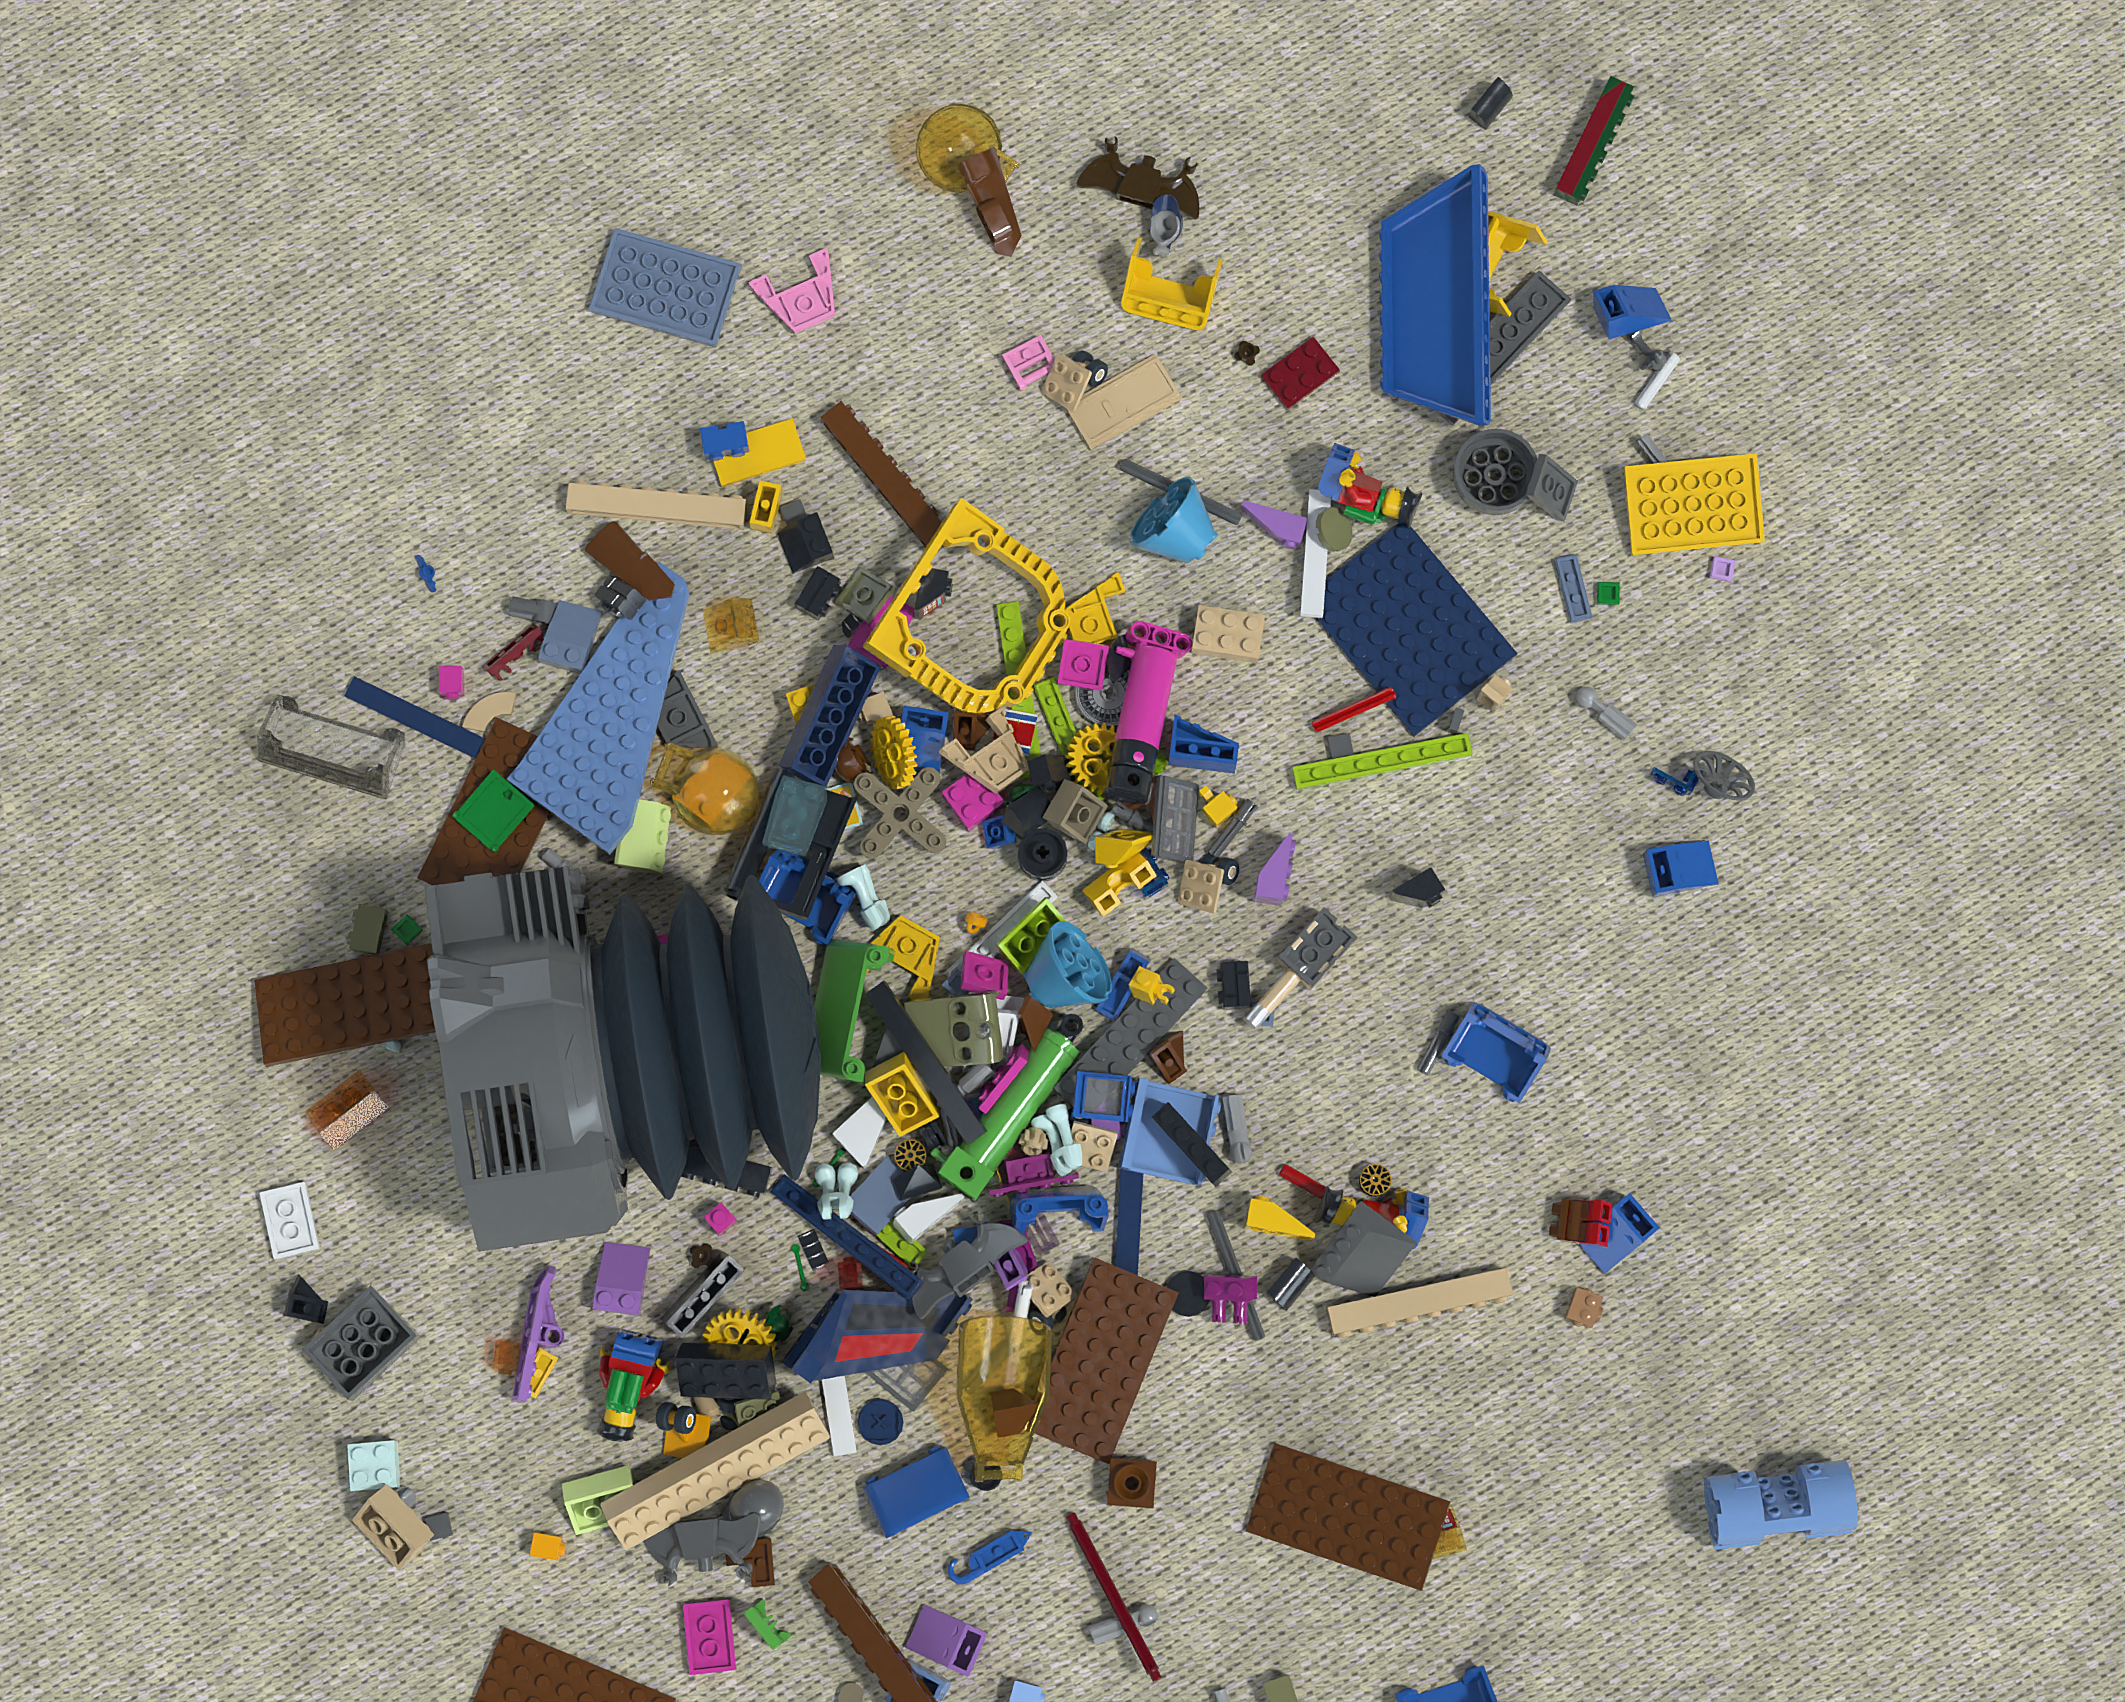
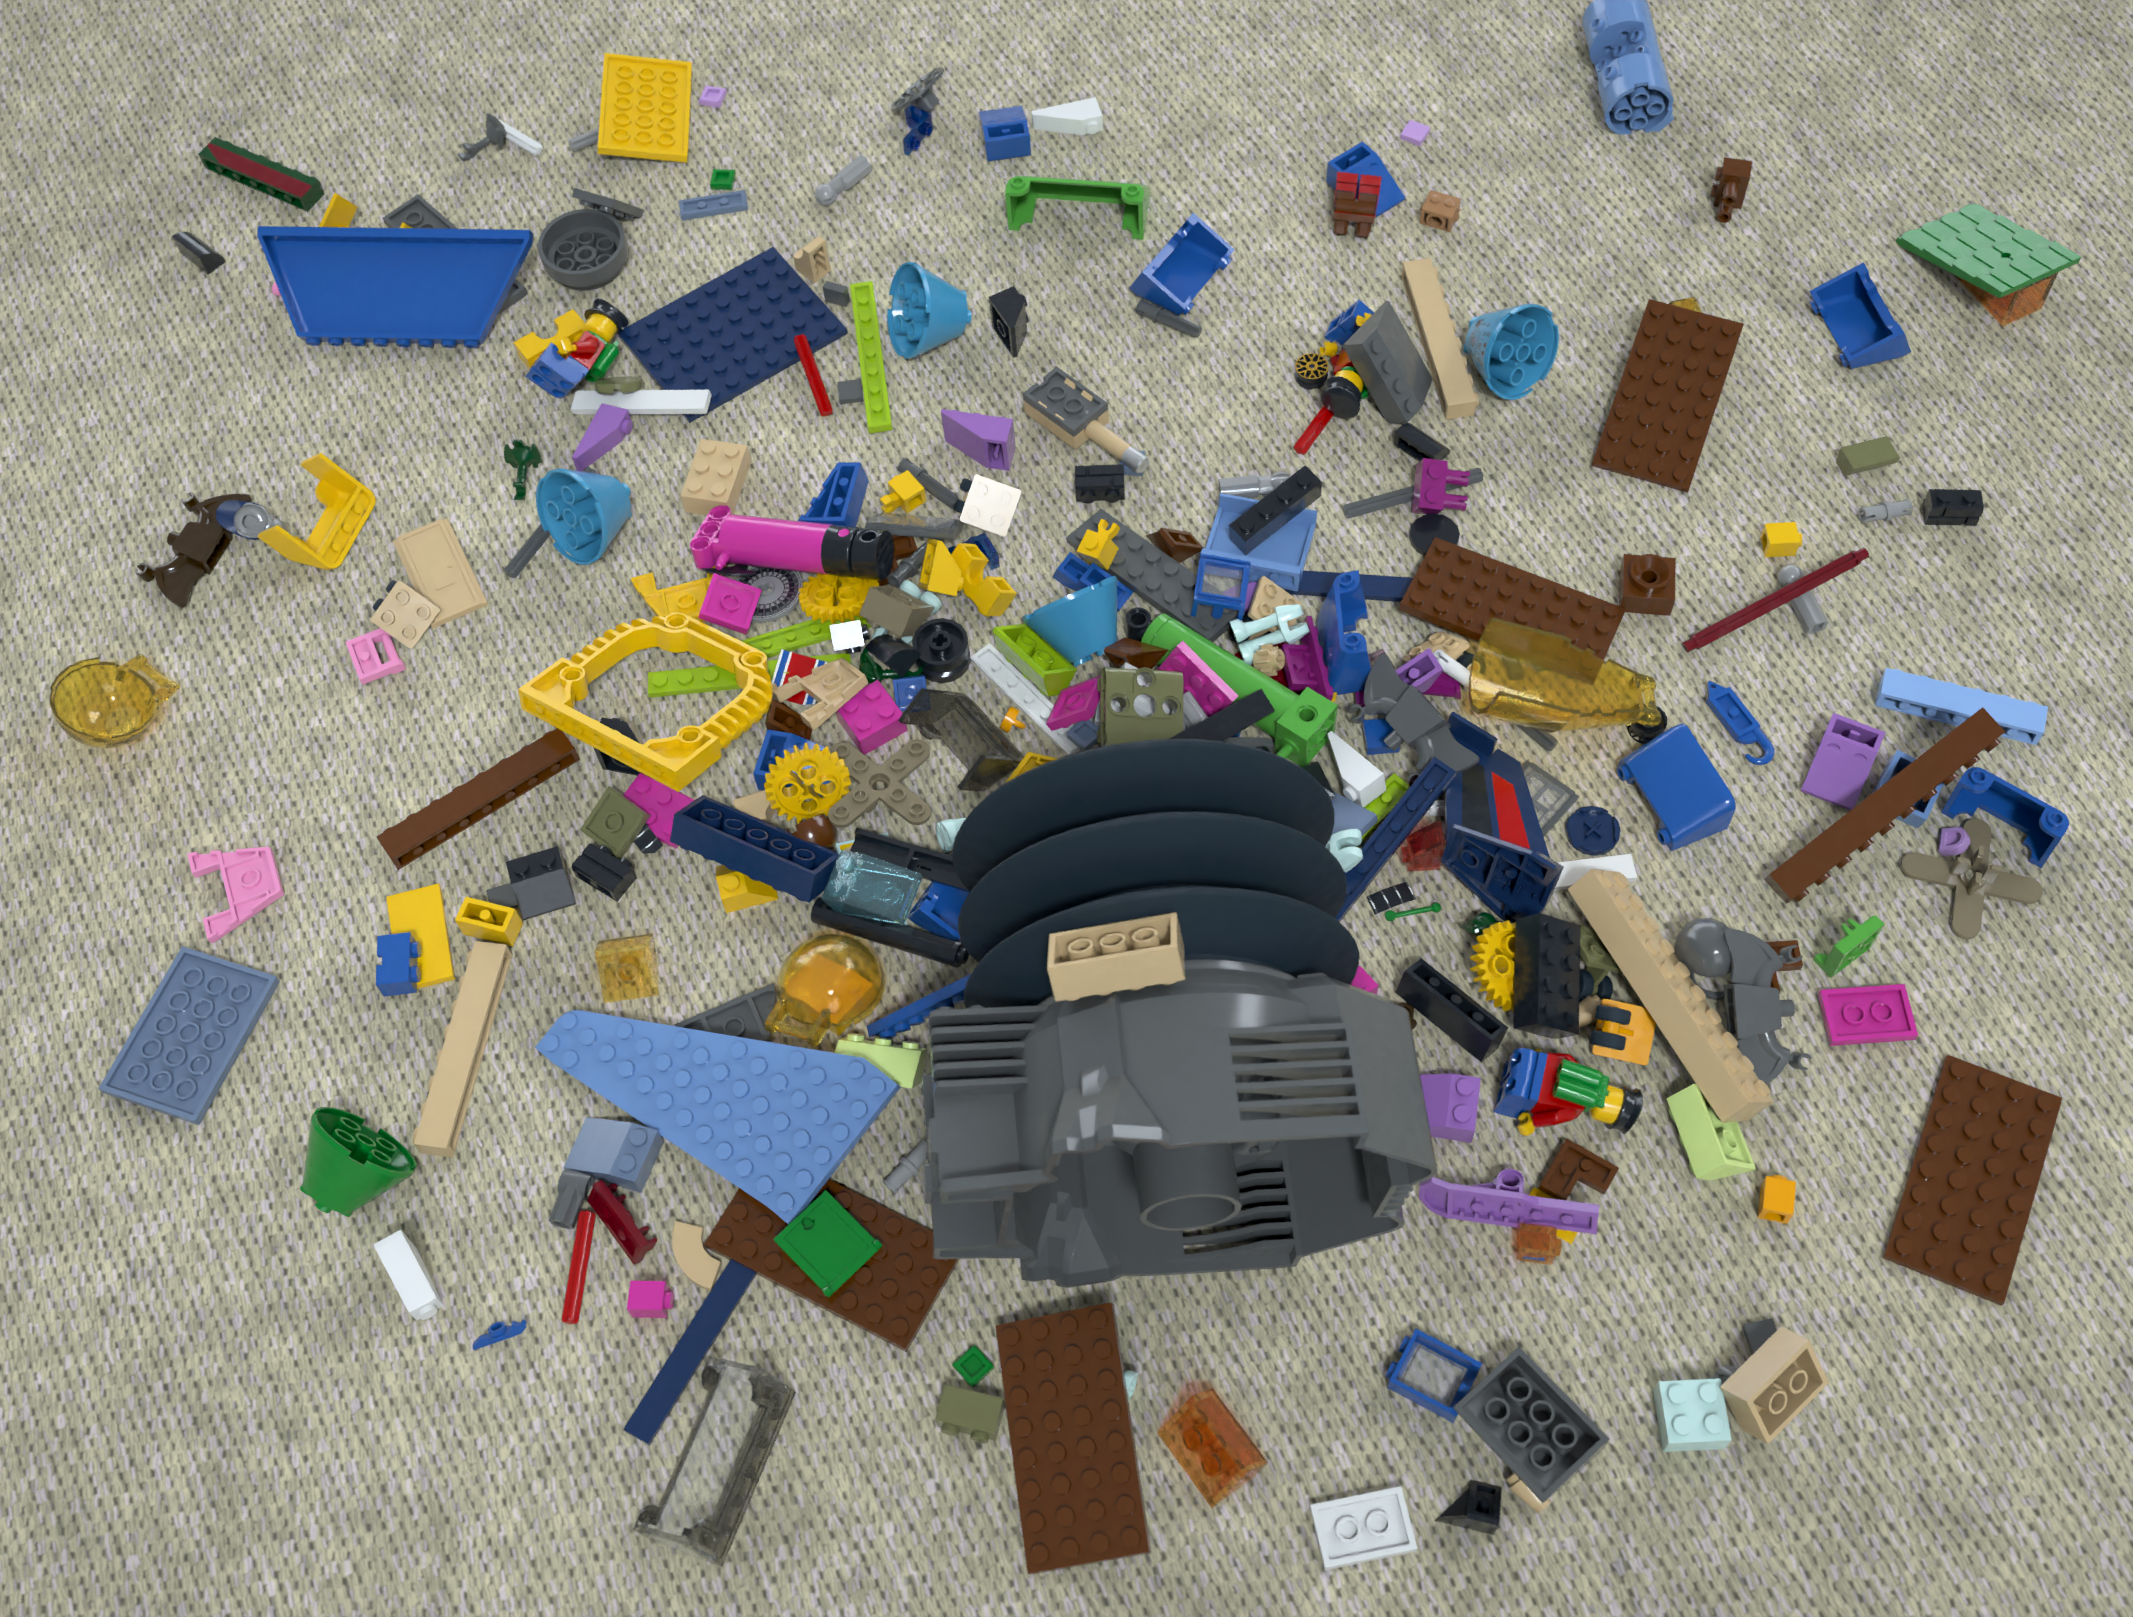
camera: 80 degrees left, 20 degrees down
(402, 1273) = (1432, 1374): none -> window
(463, 500) = (409, 1275): none -> white slope
(478, 624) = (578, 1267): none -> red axle
(551, 441) = (351, 1162): none -> green cone
(574, 1389) = (1573, 1165): none -> reddish brown plate
(586, 997) = (1116, 957): none -> tan brick
(619, 598) = (572, 1085): black brick -> none
(627, 561) = (538, 1063): reddish brown panel -> none
(667, 877) = (919, 1010): none -> blue plate
(955, 891) = (966, 733): none -> clear smoke windscreen
(994, 207) = (189, 681): reddish brown panel -> none
(1011, 1411) = (1576, 686): reddish brown slope -> none
(1187, 1611) = (1780, 539): none -> yellow brick
(1244, 347) = (410, 454): dark brown plate -> none
(1248, 455) = (521, 456): none -> dark green piece
(1272, 1219) = (1354, 448): yellow slope -> none
(1300, 373) = (443, 416): dark red plate -> none
(1373, 447) = (531, 346): none -> yellow arch
(1390, 1365) = (1513, 348): none -> dark azure cone
(1419, 809) = (924, 311): none -> dark azure cone
(1593, 949) = (1023, 192): none -> bright green windscreen
(1618, 1598) = (1731, 186): none -> reddish brown brick
(1628, 309) = (440, 152): blue slope -> none
(1696, 1285) = (1415, 133): none -> lavender tile
(1699, 939) = (1072, 118): none -> white slope

